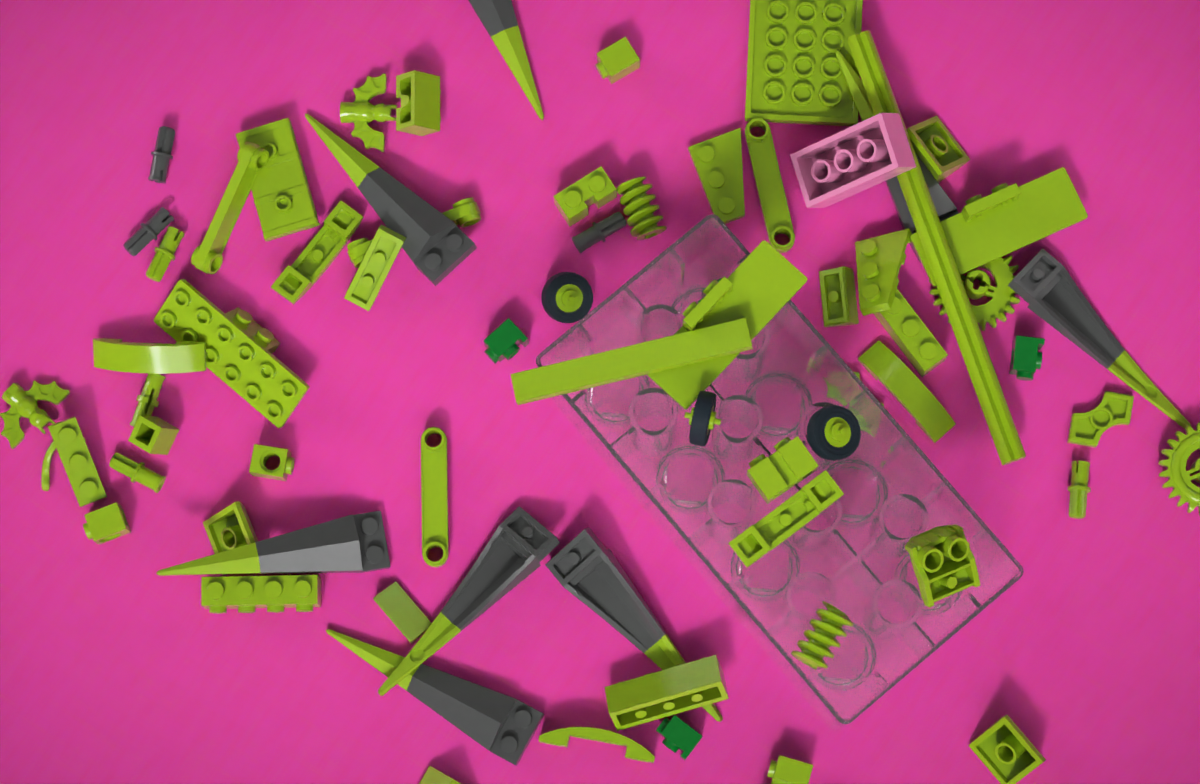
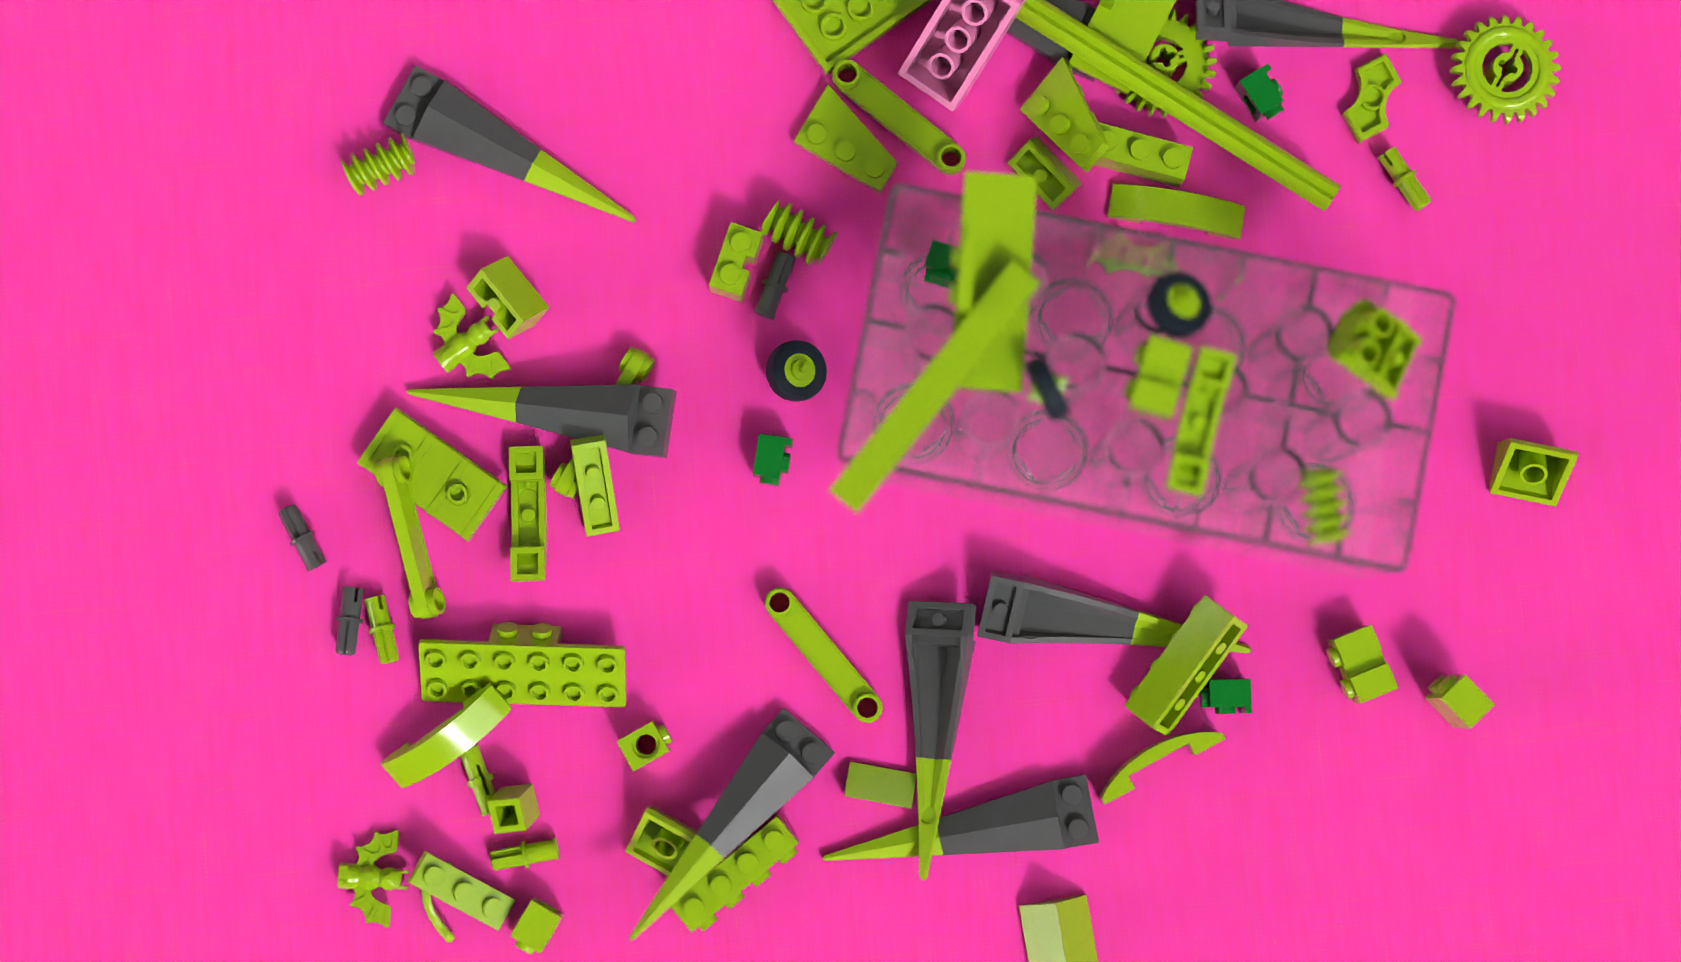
camera: 45 degrees left, 5 degrees up
(617, 60) = (662, 110): lime brick -> none

